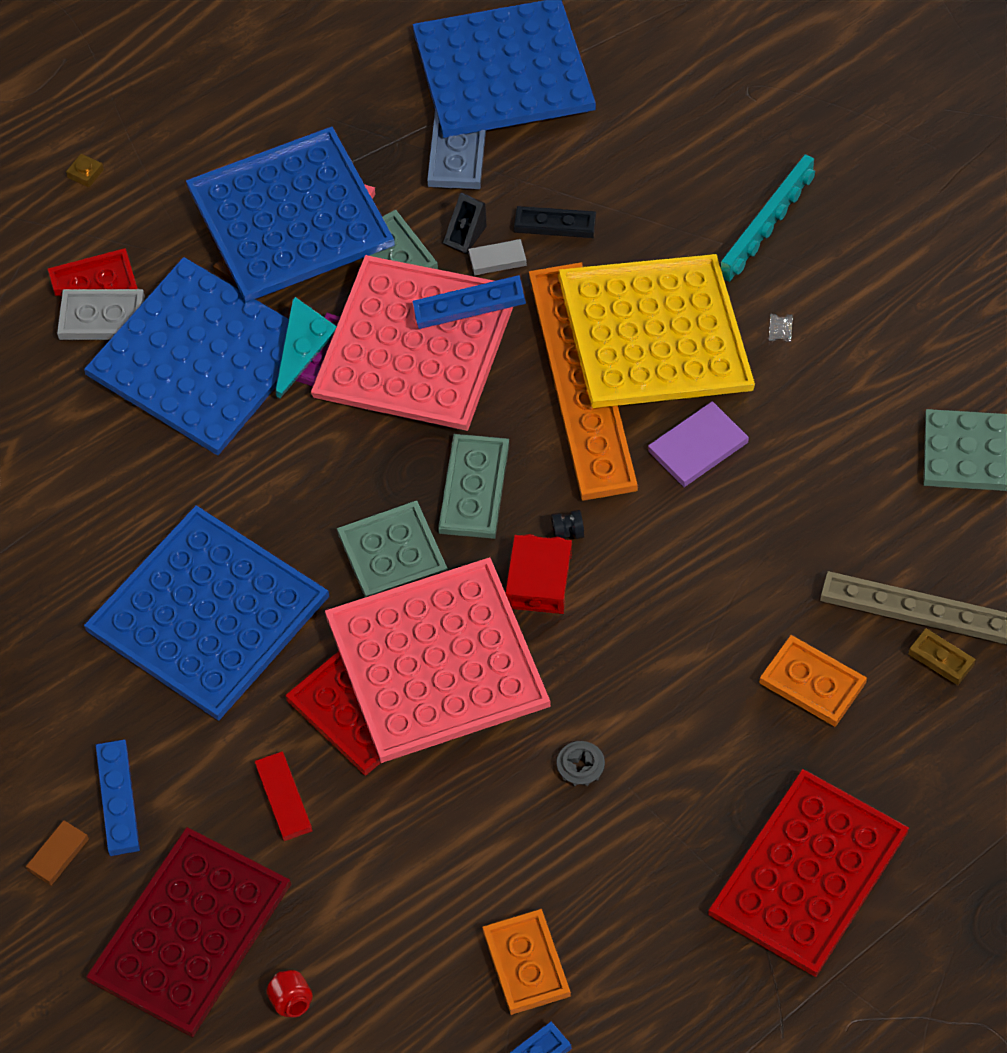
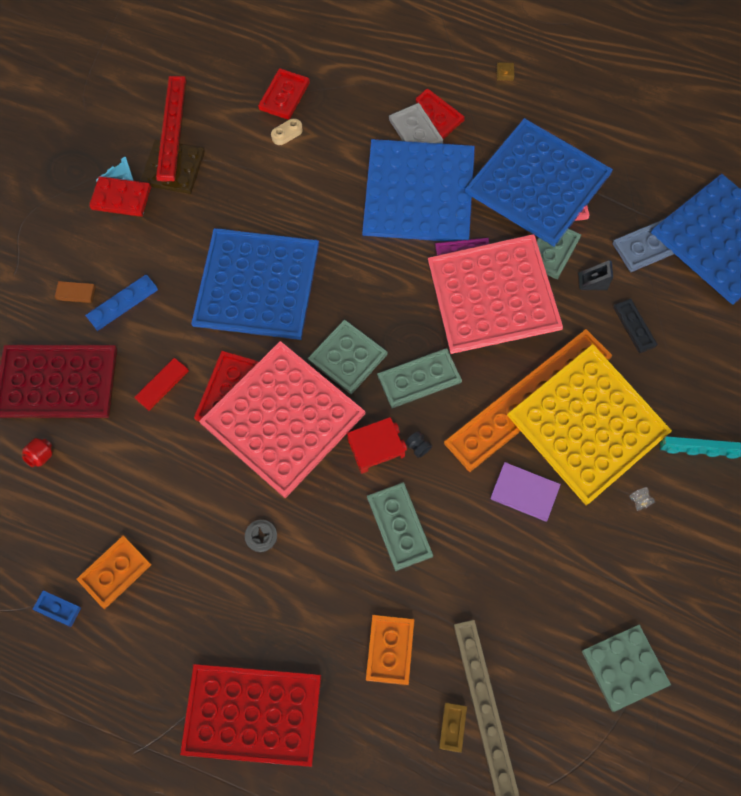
camera: 60 degrees right, 10 degrees up
(304, 339) = (457, 235): teal wing -> none
(469, 302) = (532, 305): blue plate -> none
(497, 257) = (587, 307): light grey tile -> none
(660, 601) = (399, 526): none -> sand green tile

